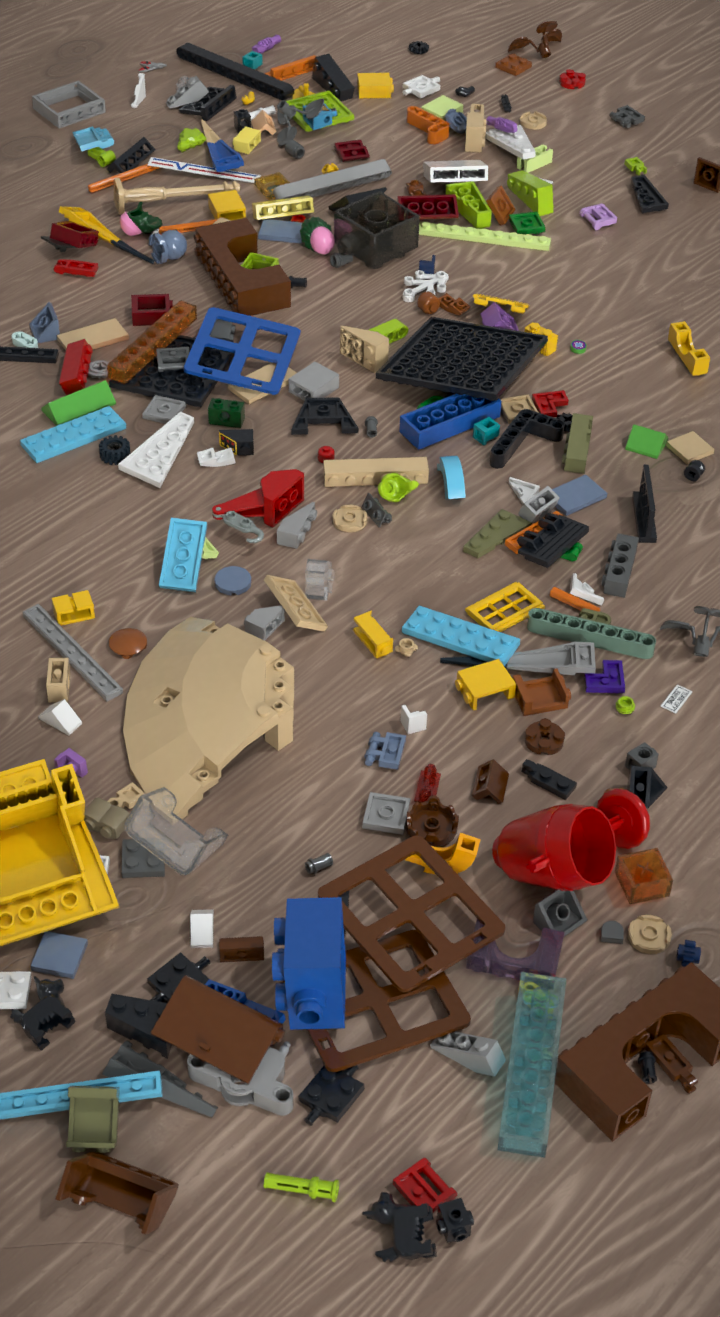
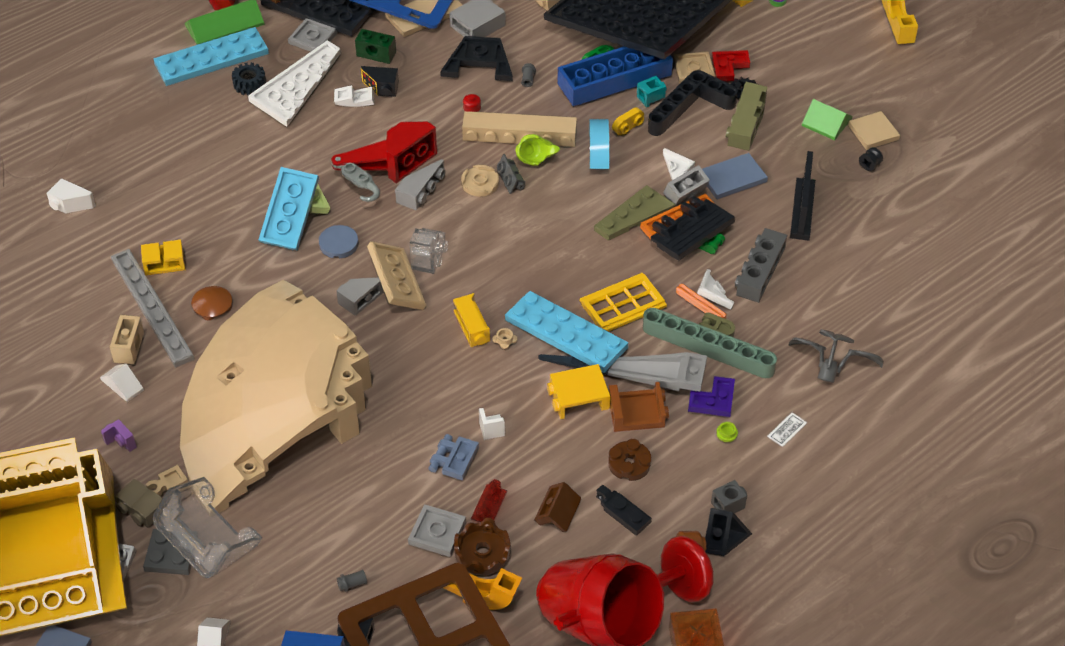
camera: 10 degrees right, 5 degrees up
(472, 457) = (628, 121): none -> yellow plate

